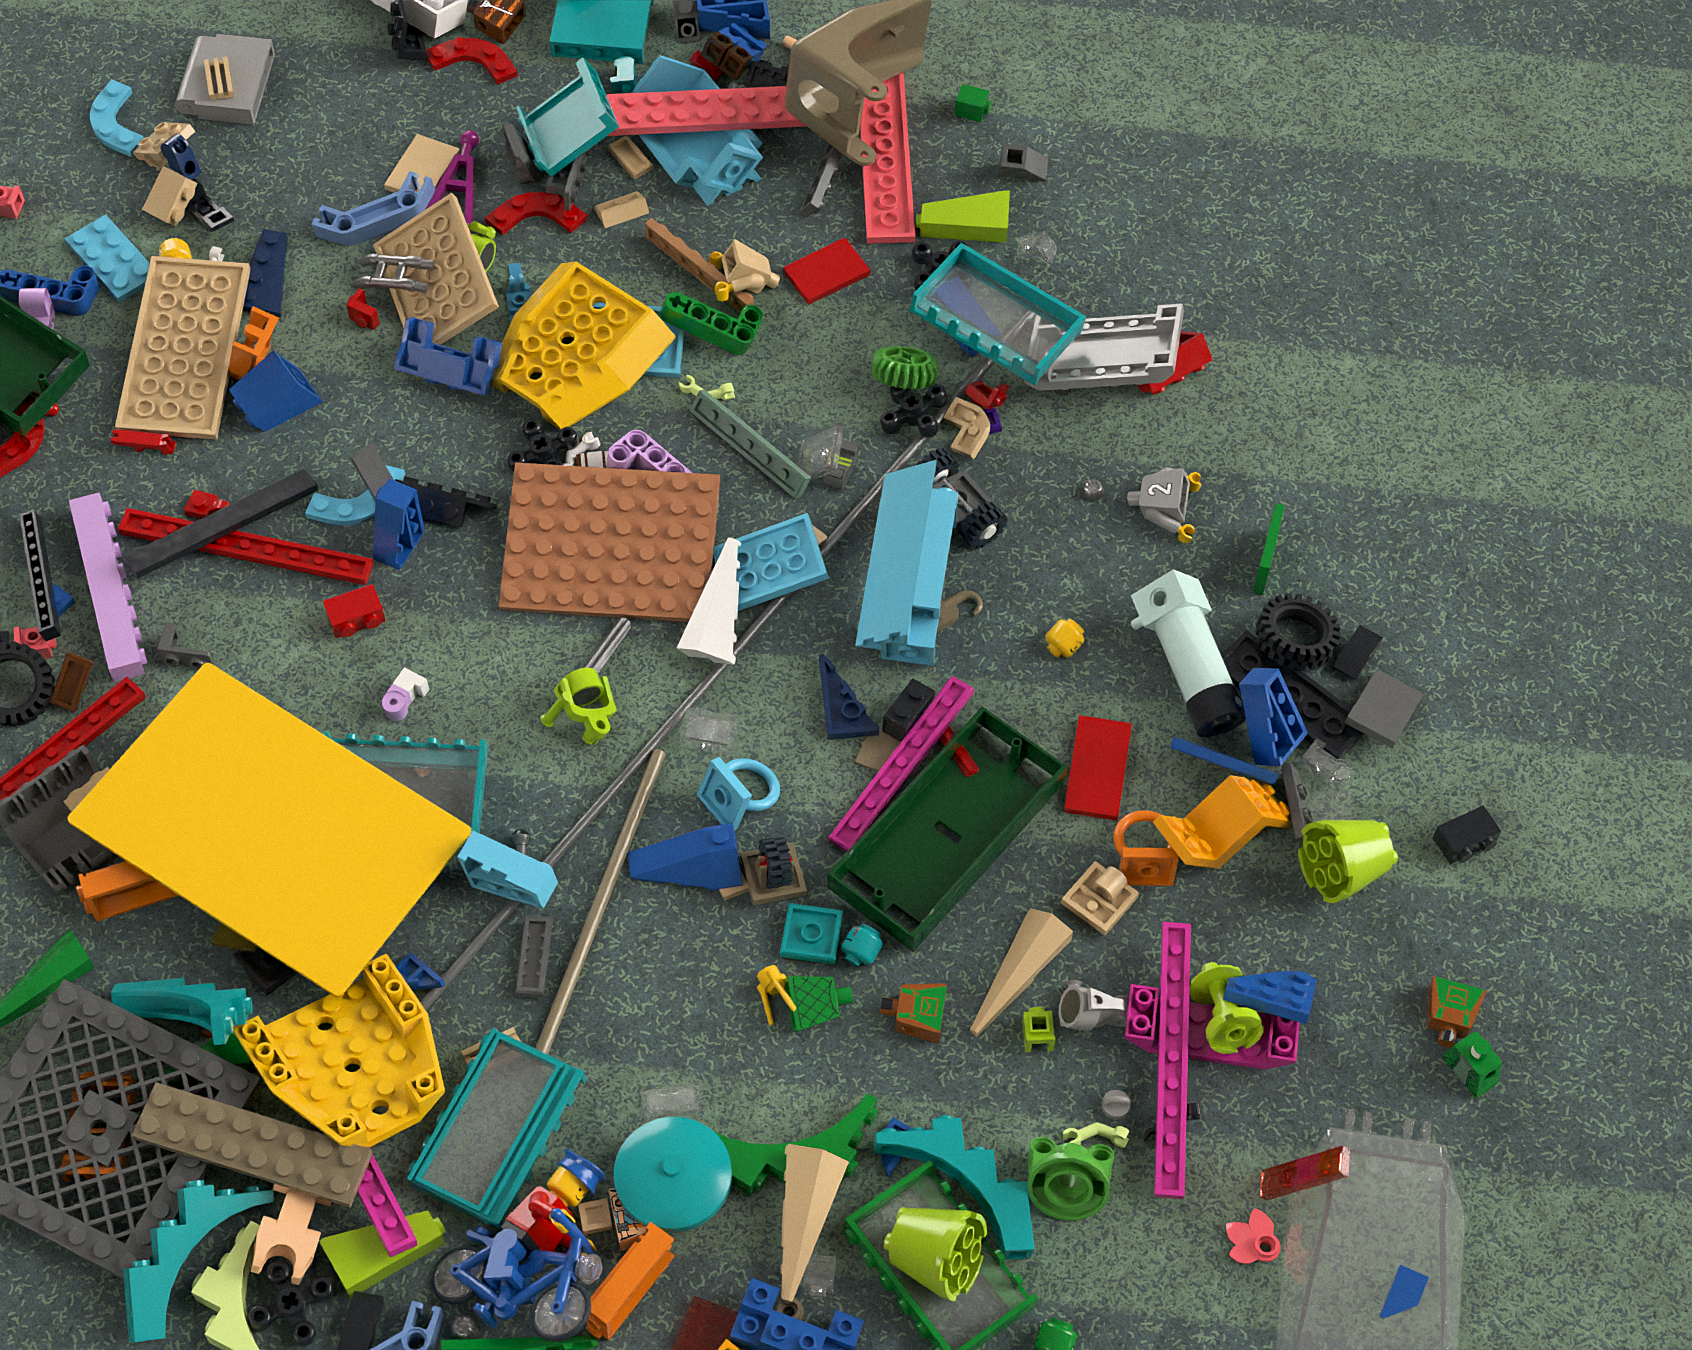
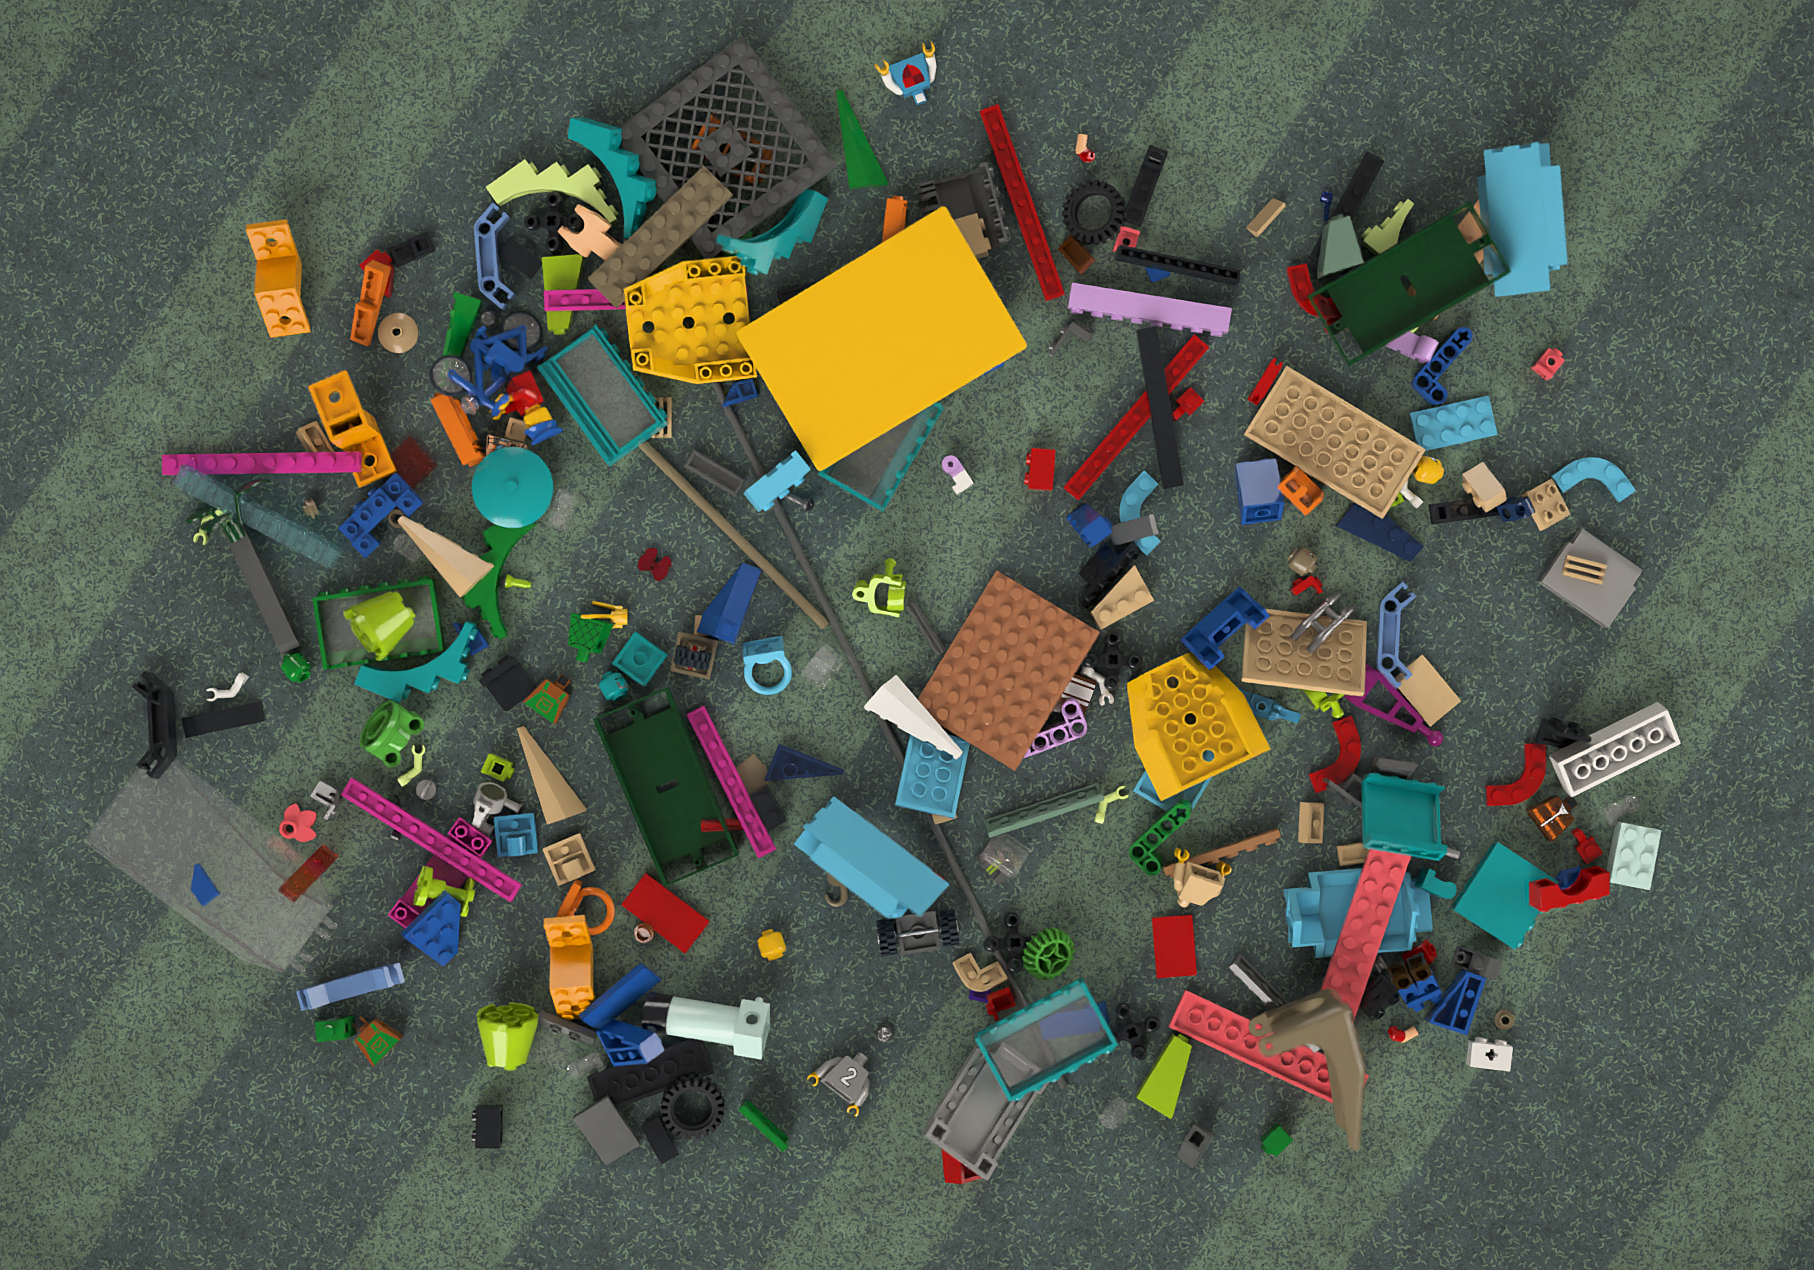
camera: 115 degrees right, 30 degrees up
(335, 324) = (1302, 561): none -> dark tan head
(468, 468) = (1124, 598): none -> tan wedge
(686, 983) = (648, 562): none -> dark red piece
(797, 1131) = (509, 581): none -> lime piece
(926, 1069) = (508, 682): none -> black bracket
(1108, 967) = (516, 834): none -> dark azure plate
(1135, 776) = (644, 932): none -> dark orange plate
(1195, 1208) = (327, 794): none -> bracket
(1407, 1068) = (350, 986): none -> medium blue piece

